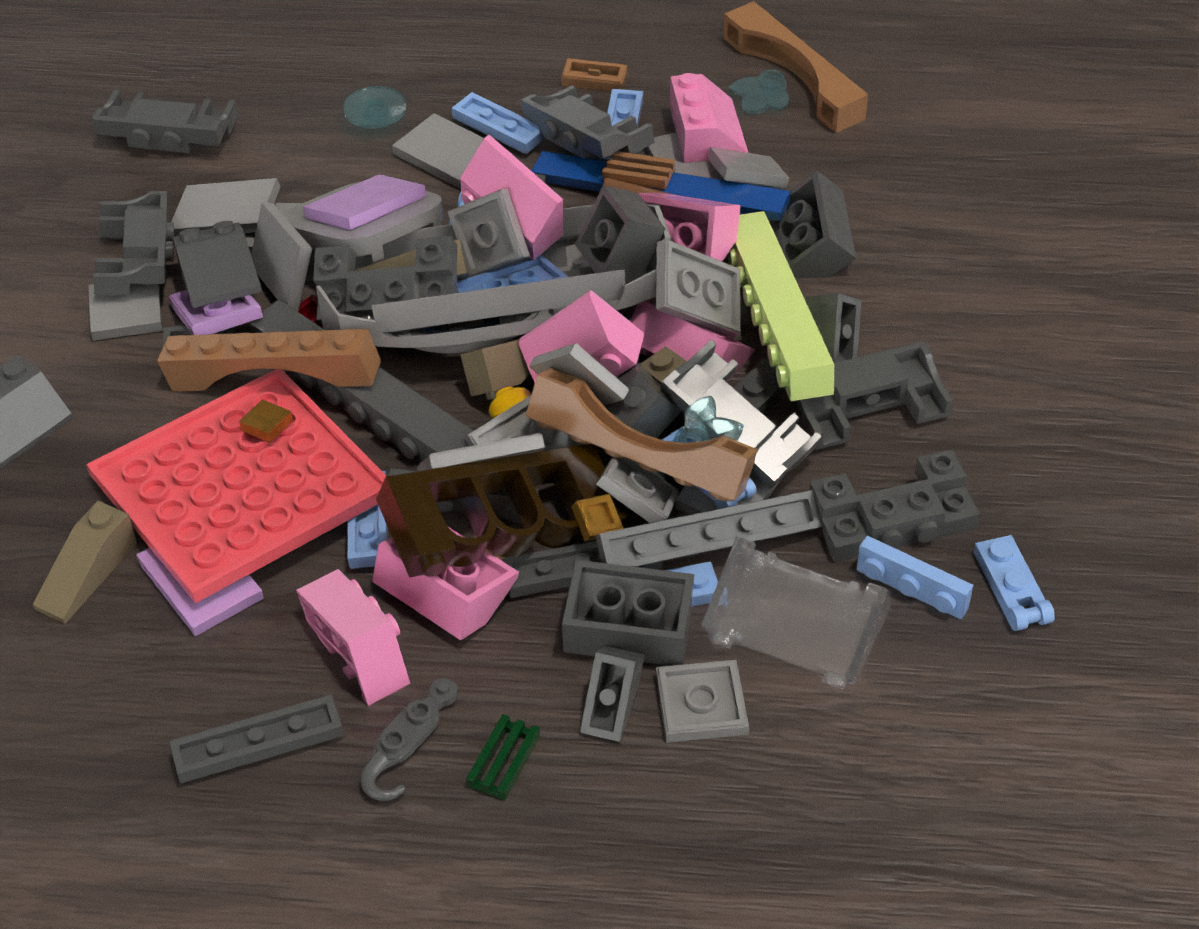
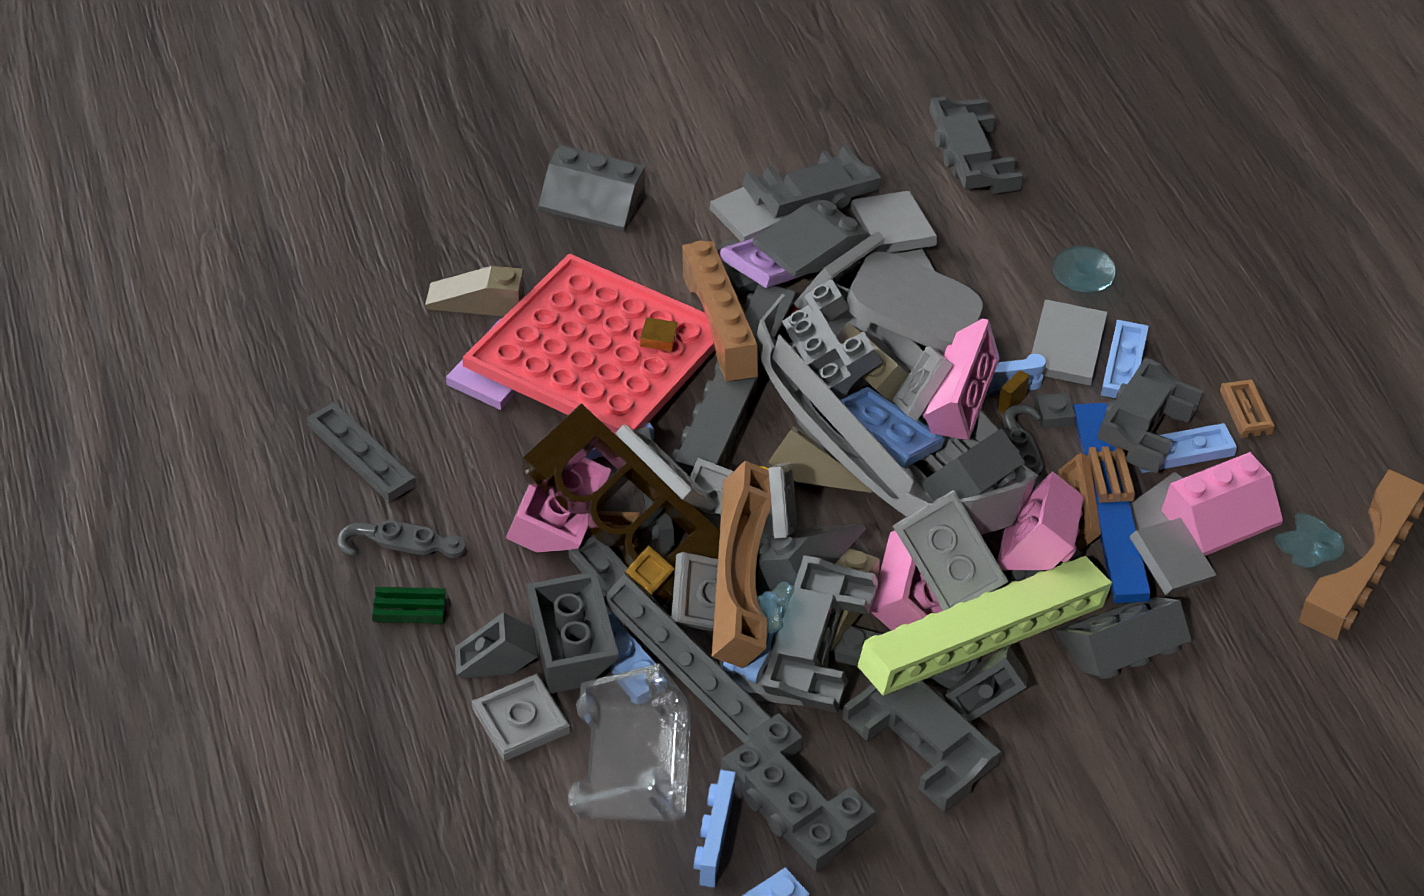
camera: 65 degrees right, 0 degrees up
(358, 631) = (475, 468): bright pink wedge -> none
(364, 202) = (922, 294): lavender tile -> none
(594, 327) = (828, 497): bright pink slope -> none

